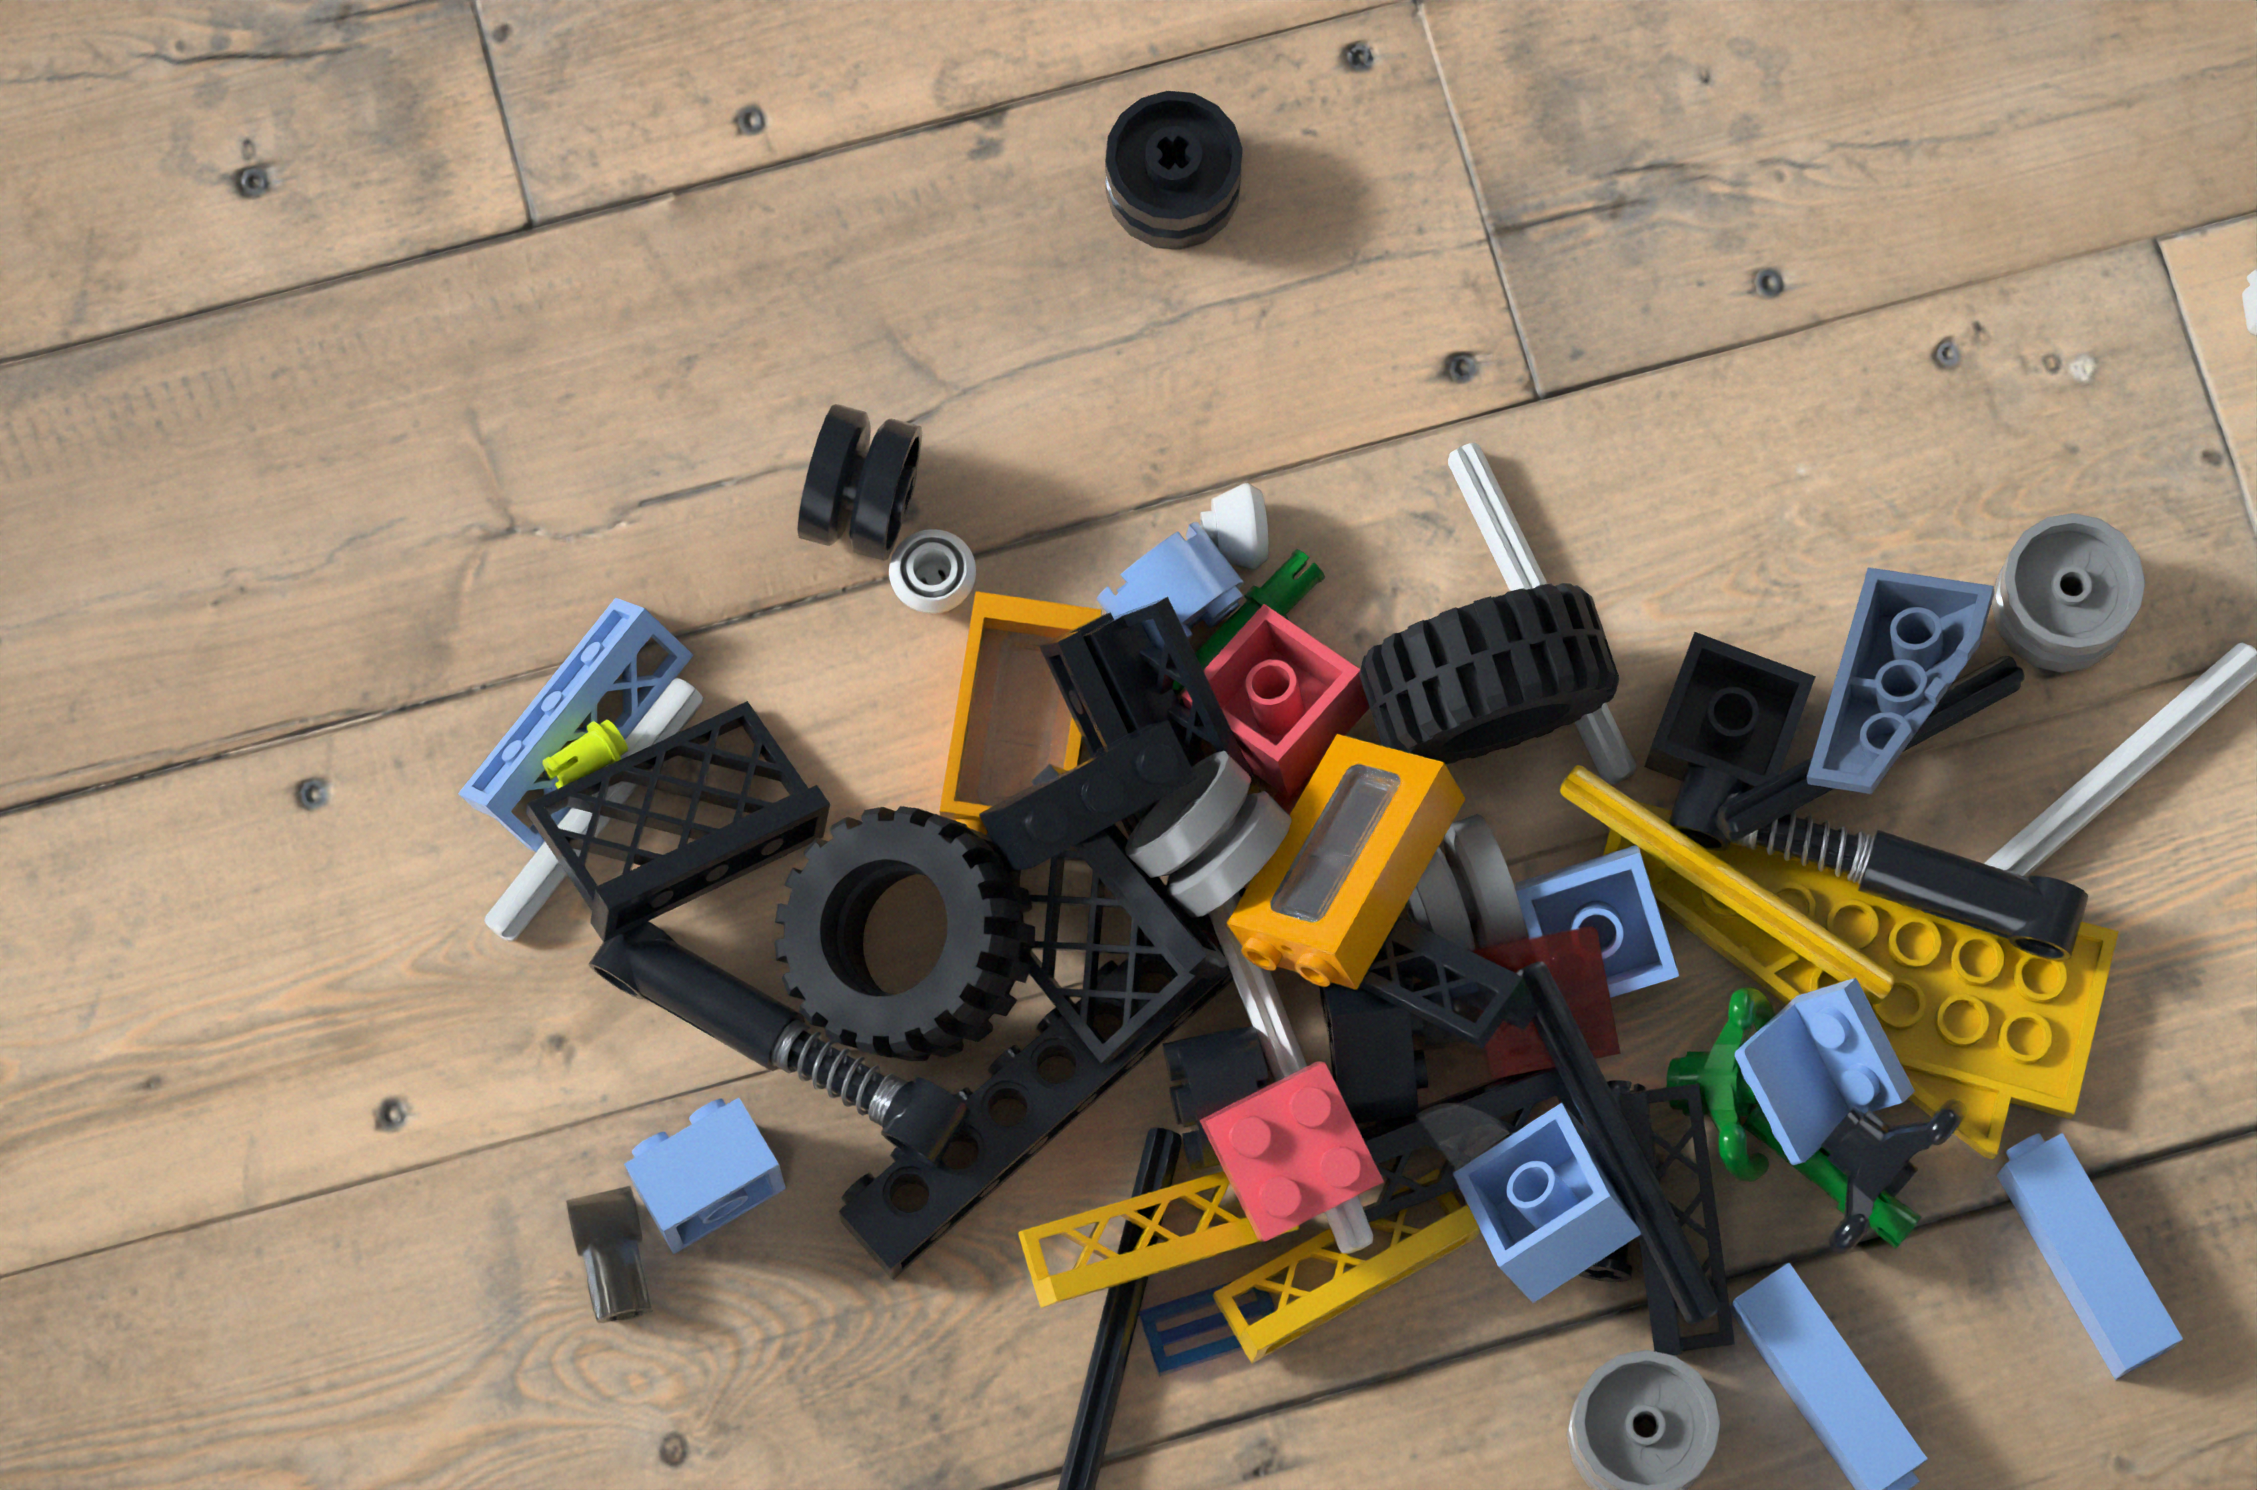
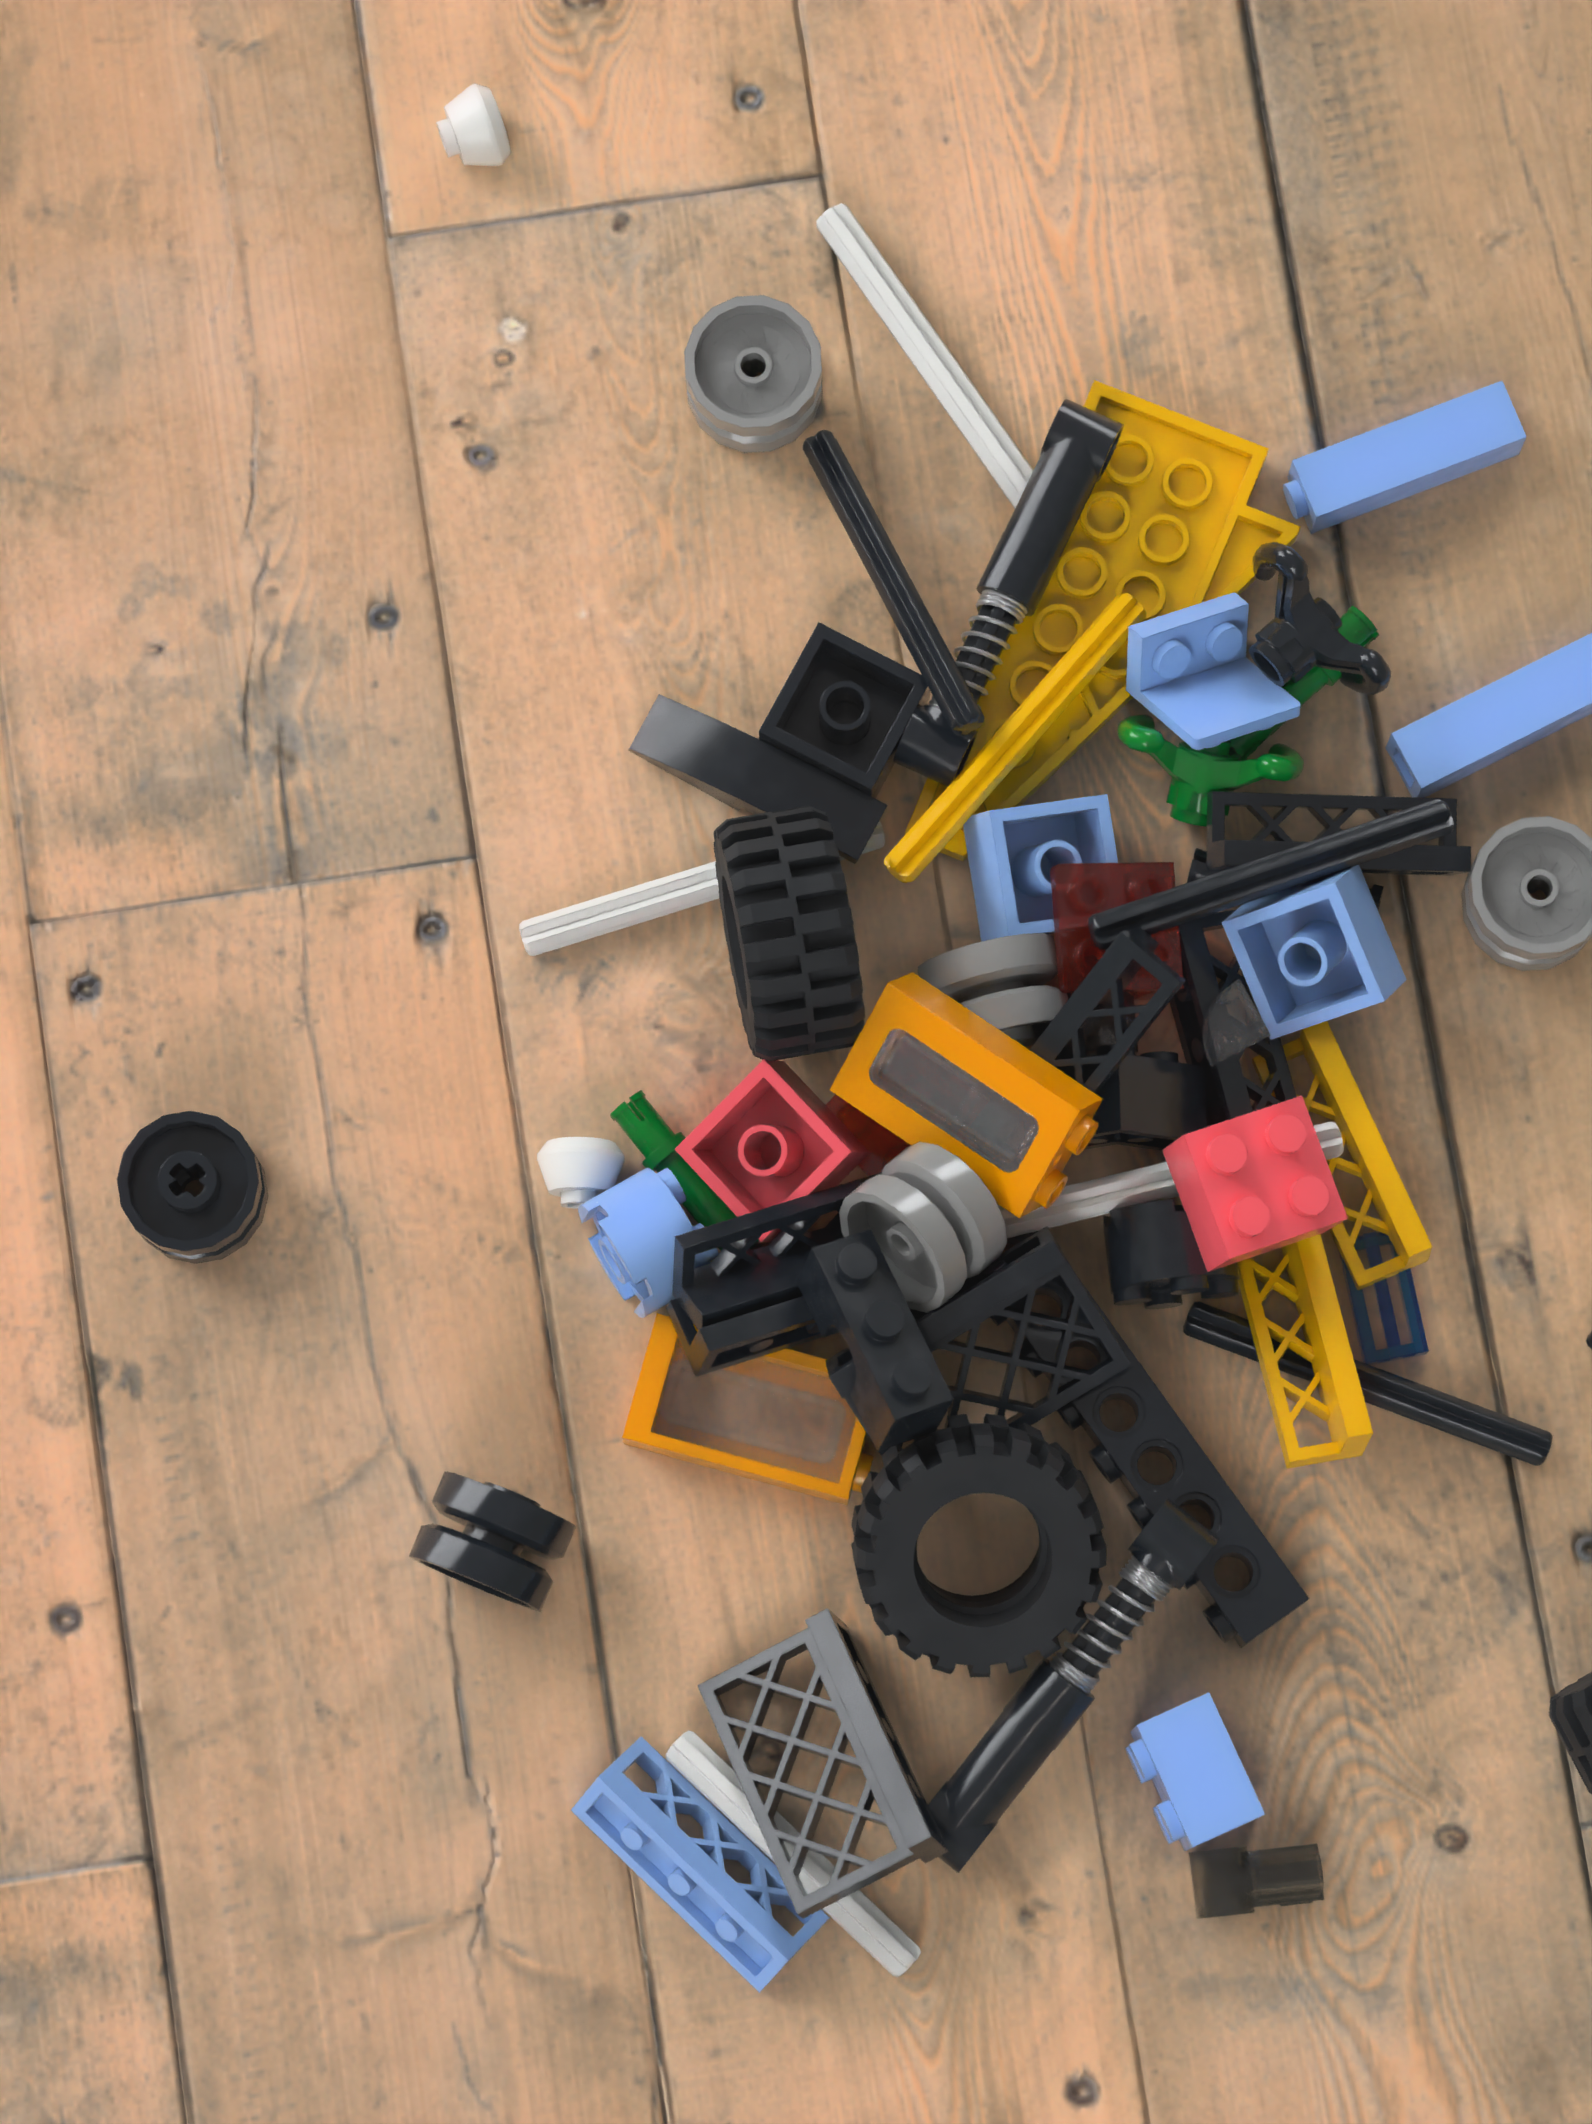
camera: 80 degrees left, 5 degrees up
(587, 754) = (744, 1849): neon yellow pin -> none
(924, 558) = (572, 1490): white cone -> none
(1654, 648) = (752, 772): none -> black slope
(1897, 664) = (821, 539): sand blue wedge -> none

